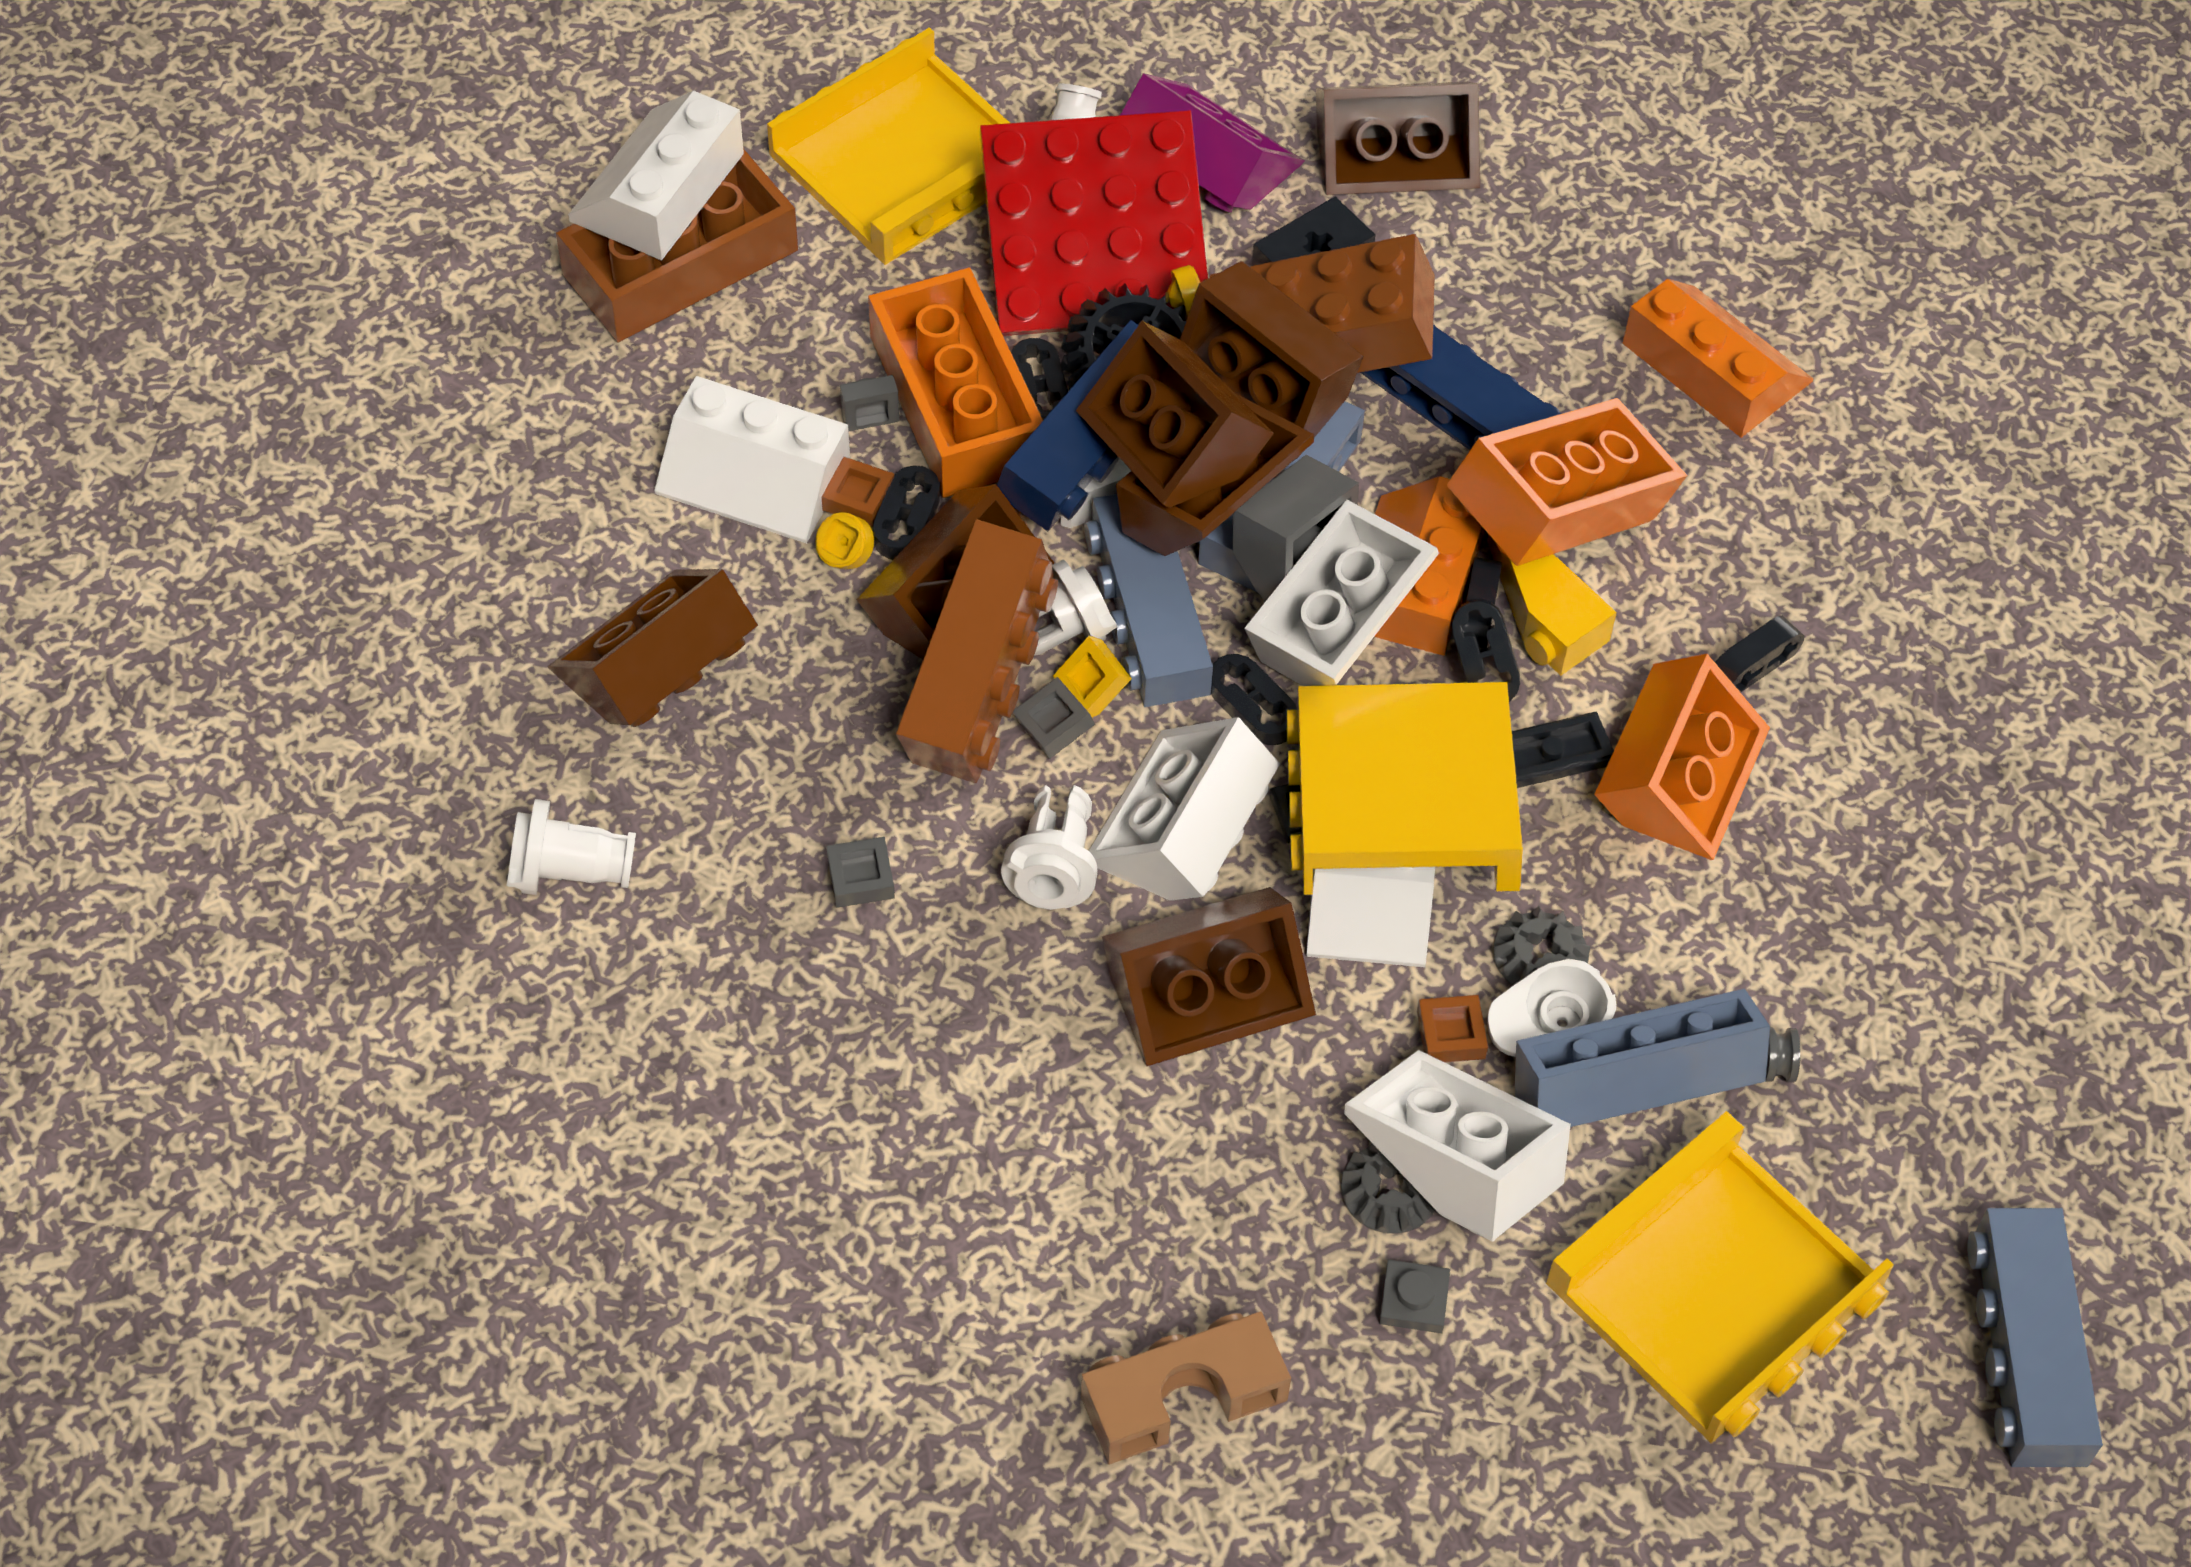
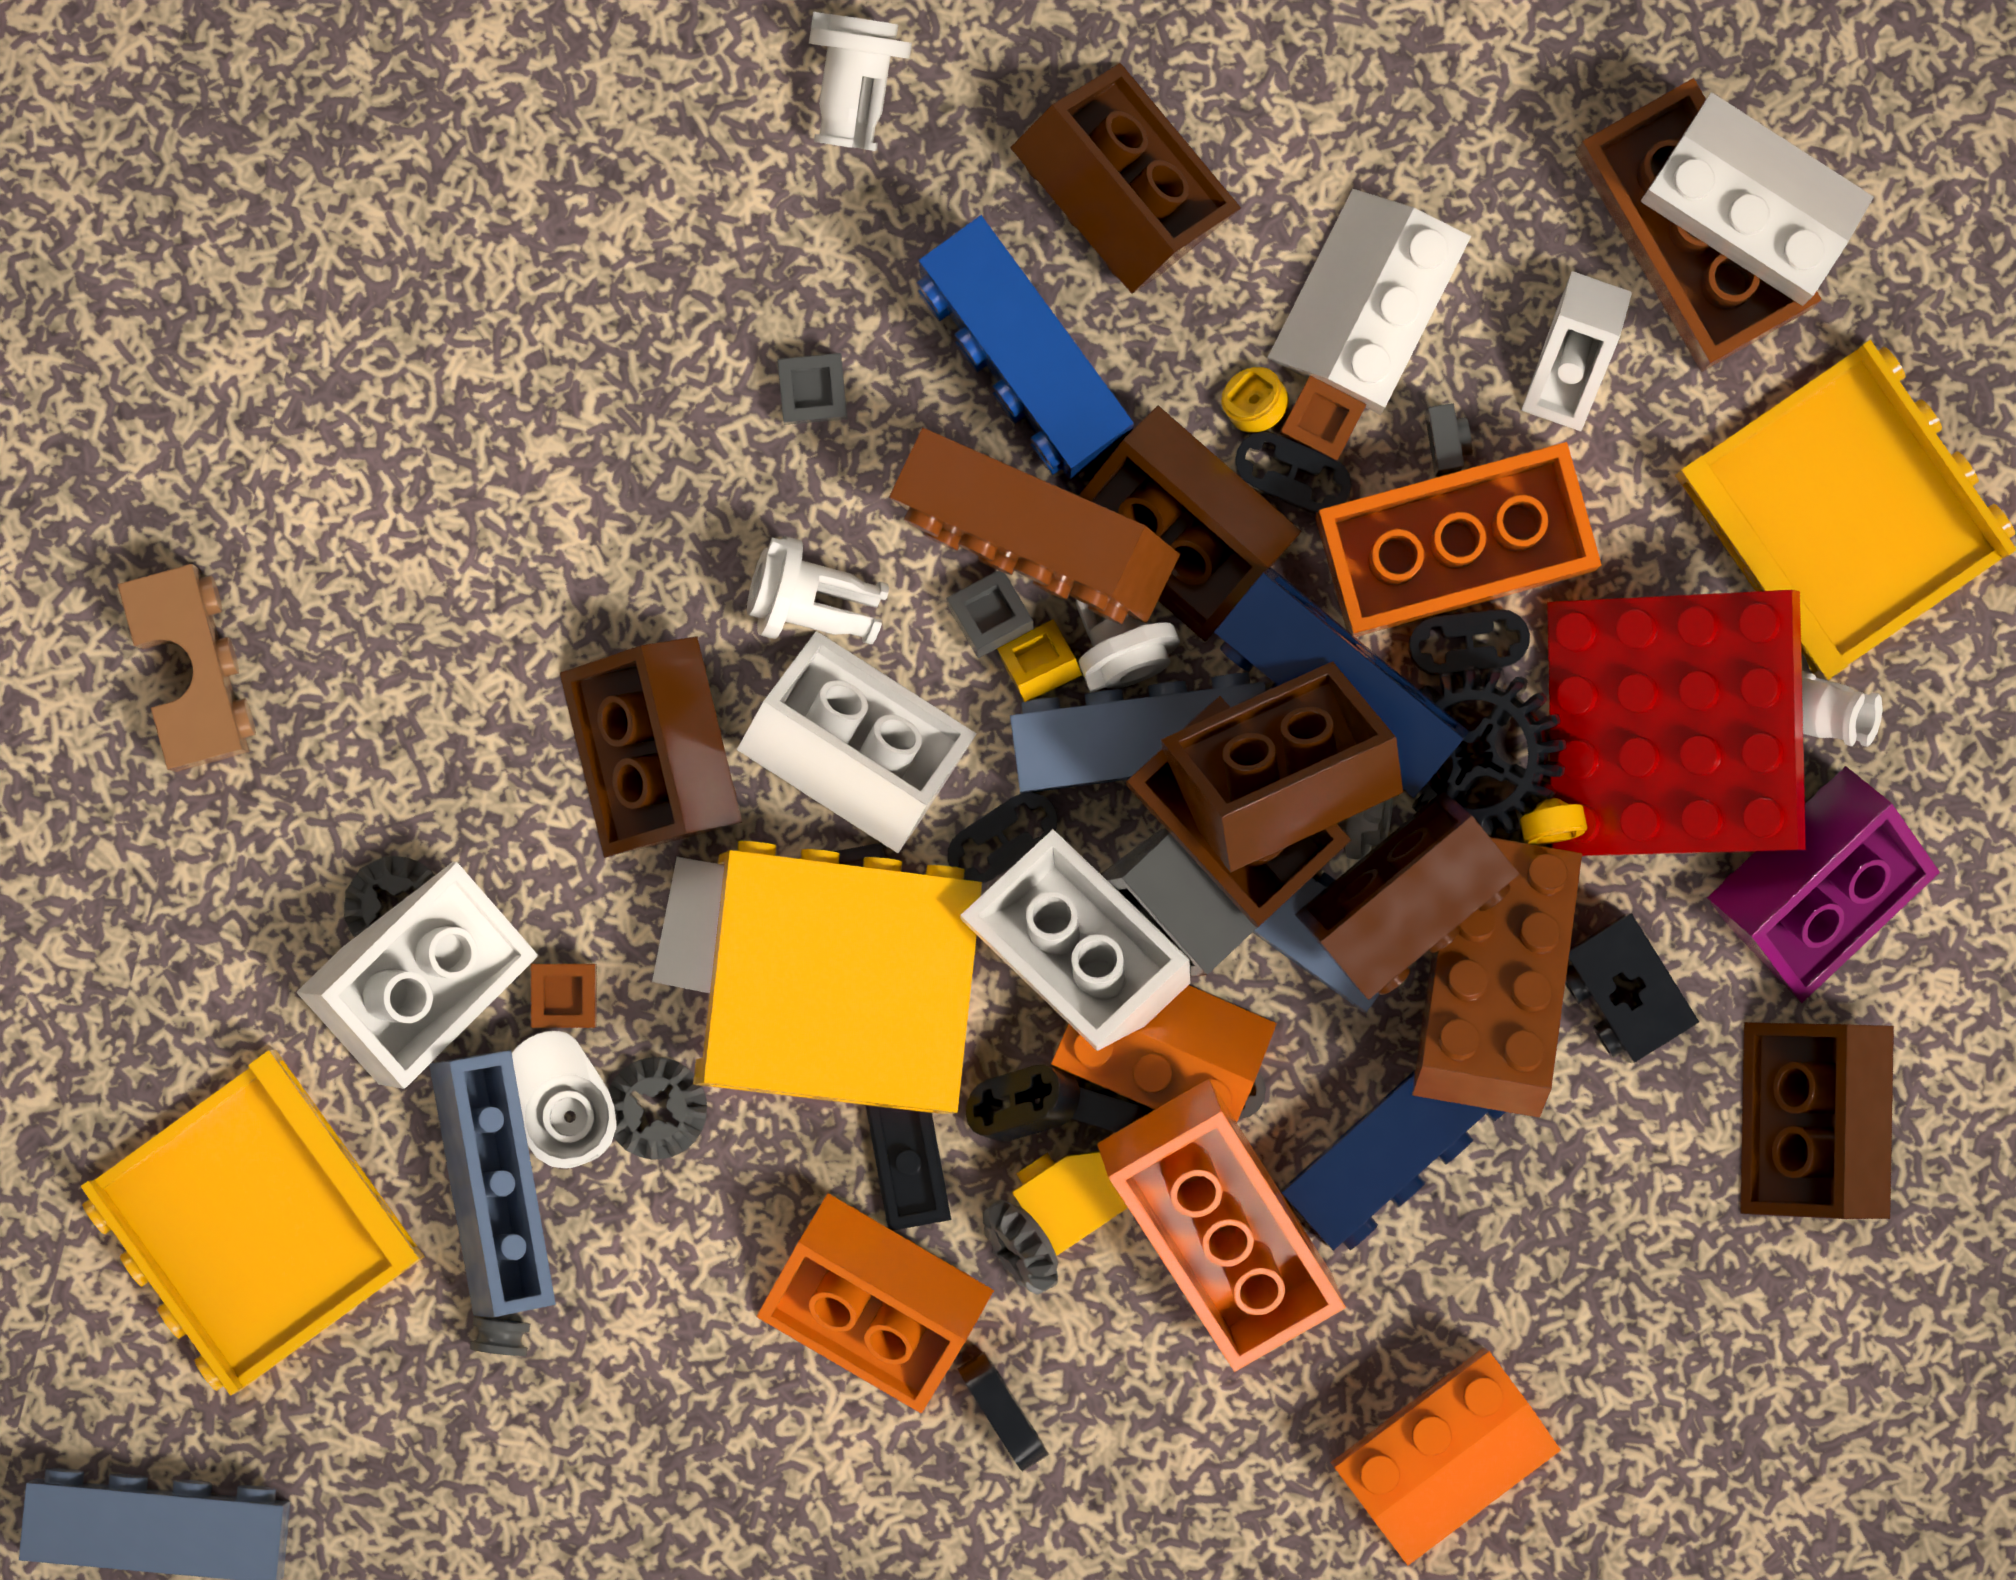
camera: 100 degrees right, 30 degrees up
(785, 318) = (1577, 351): none -> white slope
(813, 690) = (1025, 349): none -> blue brick
(1415, 1296) = (269, 913): dark grey plate -> none
(1611, 644) = (1021, 1246): none -> dark grey gear

